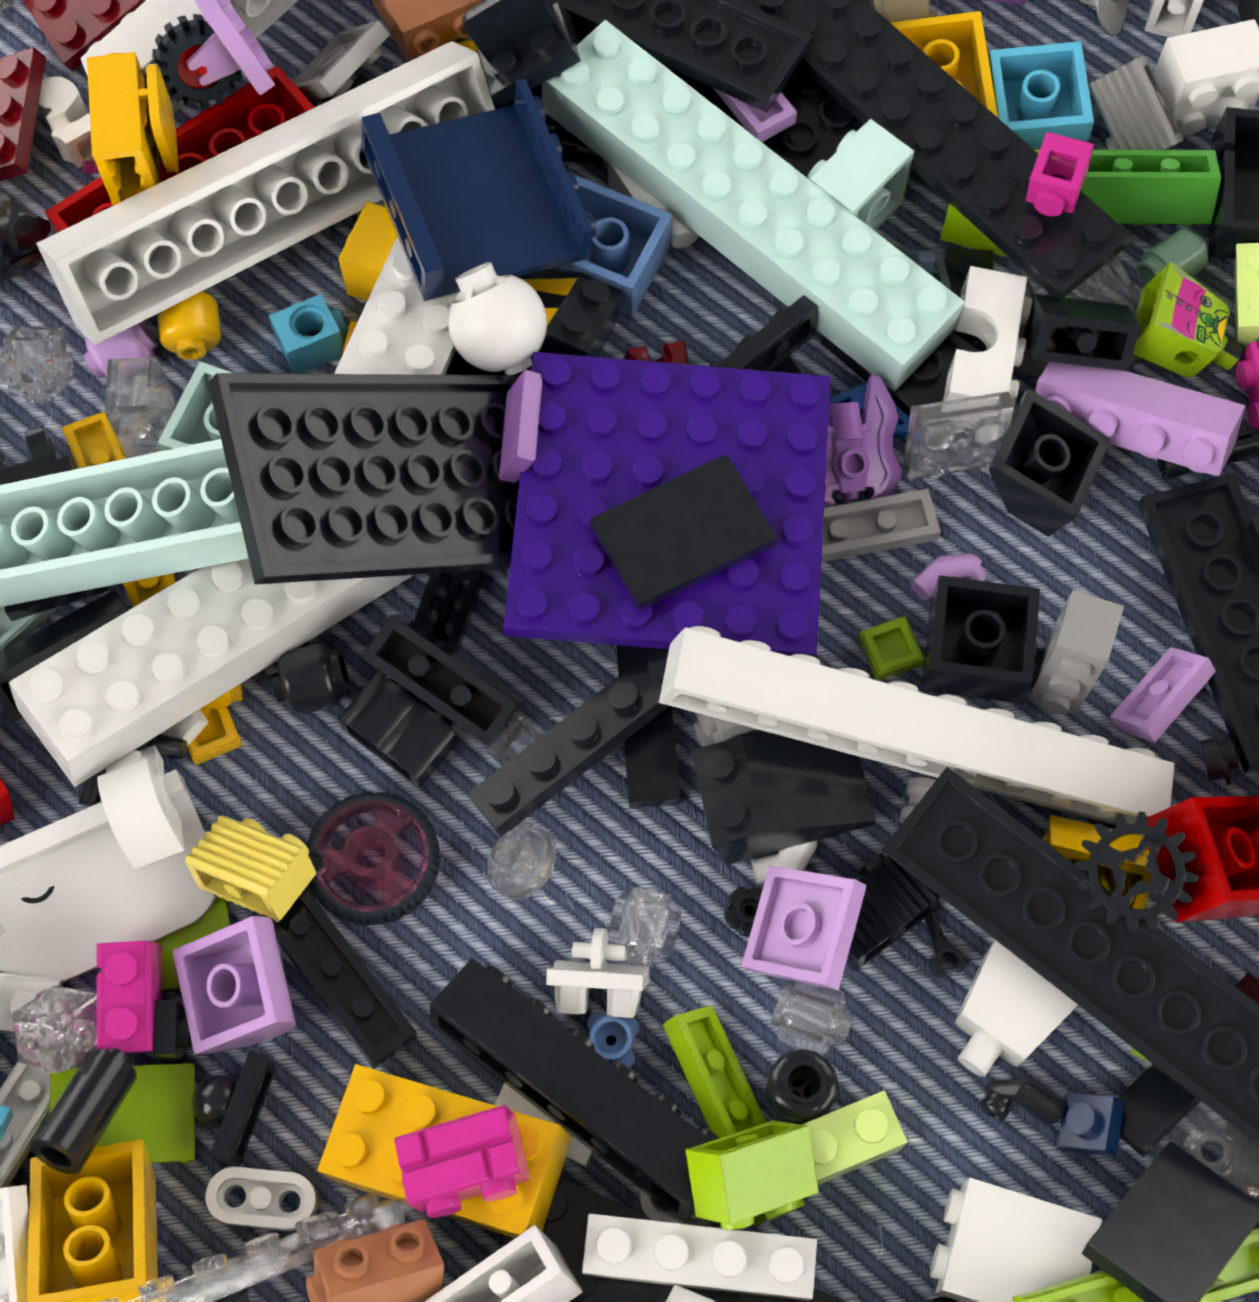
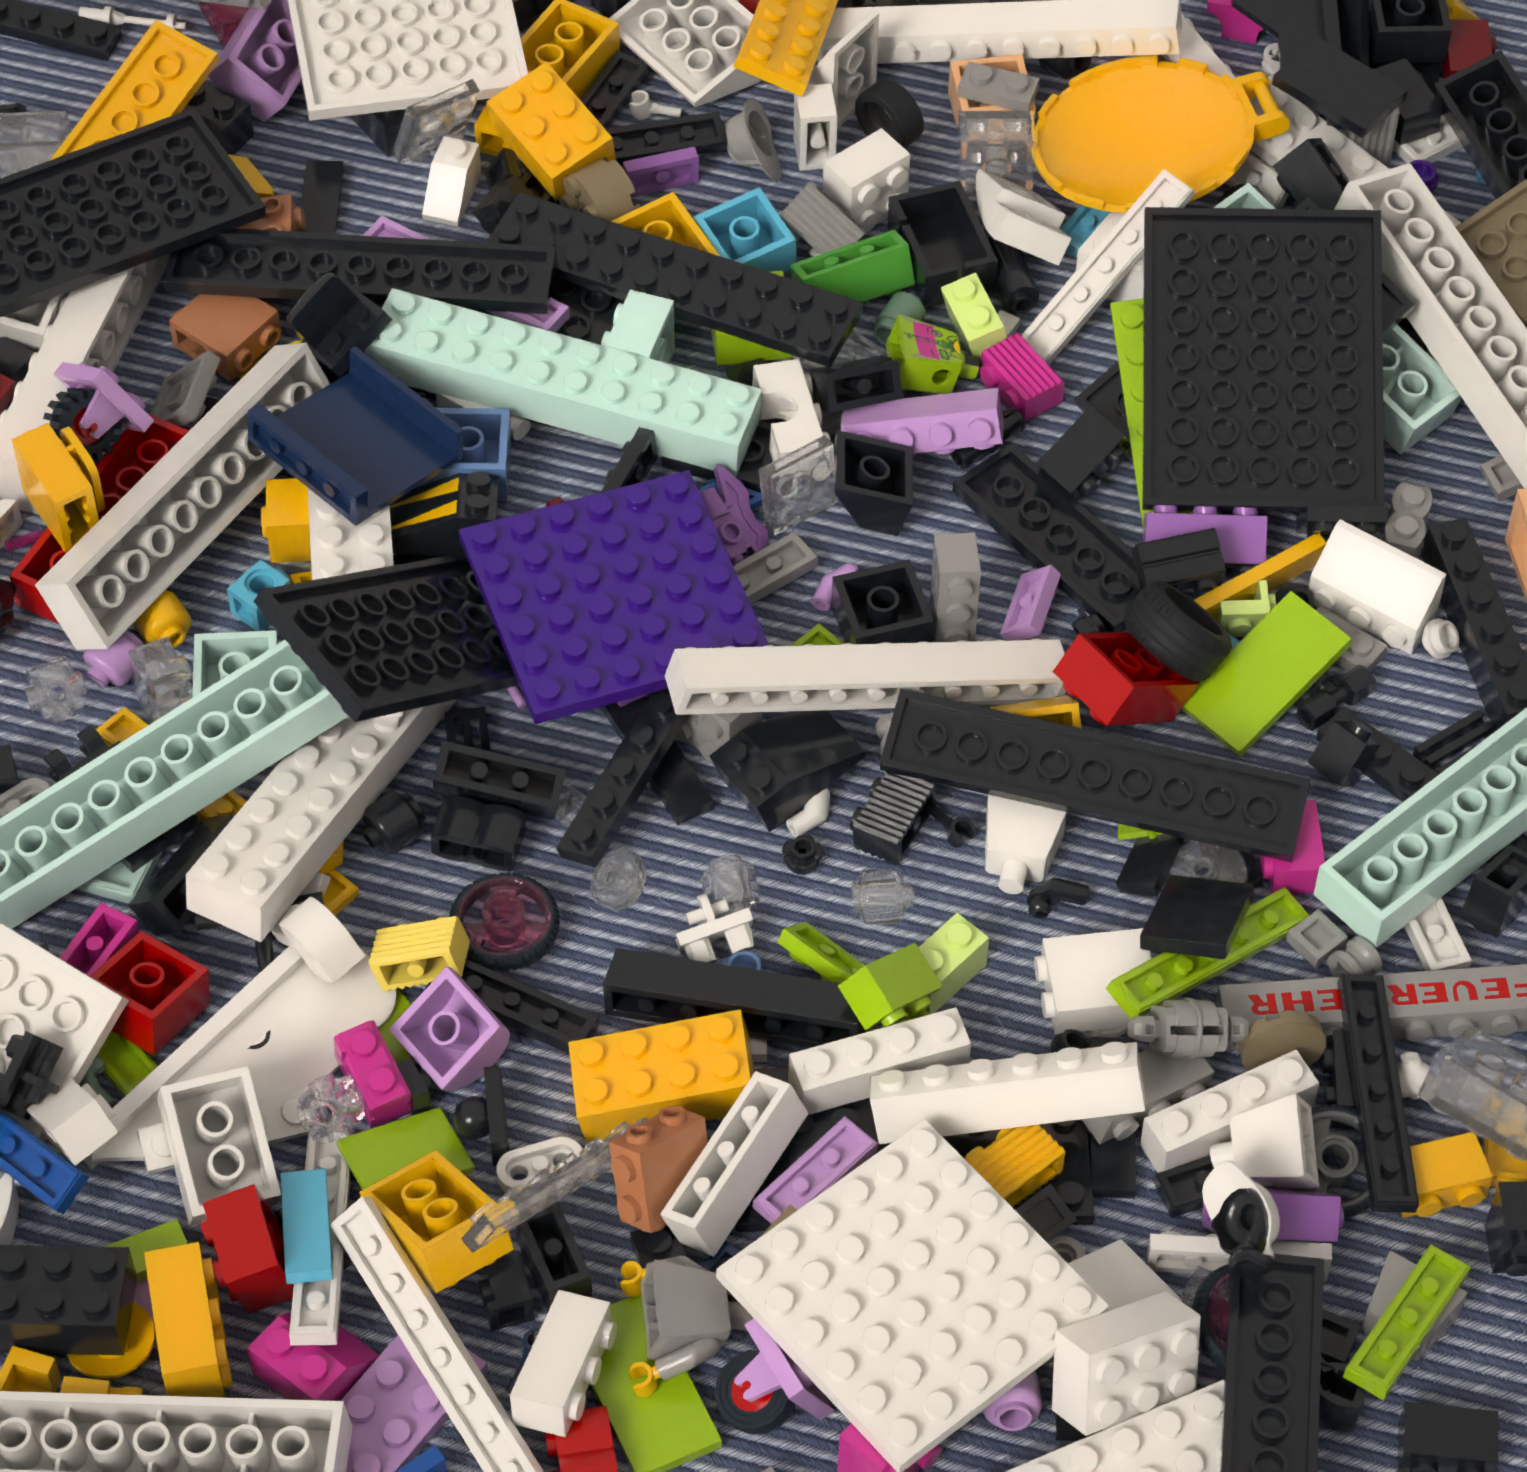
camera: 25 degrees left, 15 degrees down
(84, 1110) = (385, 1143): black brick -> none
(462, 1161) = (685, 1047): dark pink brick -> none
(496, 320) = (419, 518): white brick -> none
(520, 426) = (475, 581): medium lavender tile -> none
(682, 532) = (635, 602): black tile -> none
(804, 926) = (848, 834): lavender plate -> none
(815, 1074) = (895, 931): black head -> none
(1057, 182) = (791, 284): dark pink brick -> none
(1091, 1124) = (1111, 889): dark blue plate -> none
(1153, 838) = (1080, 697): black gear -> none

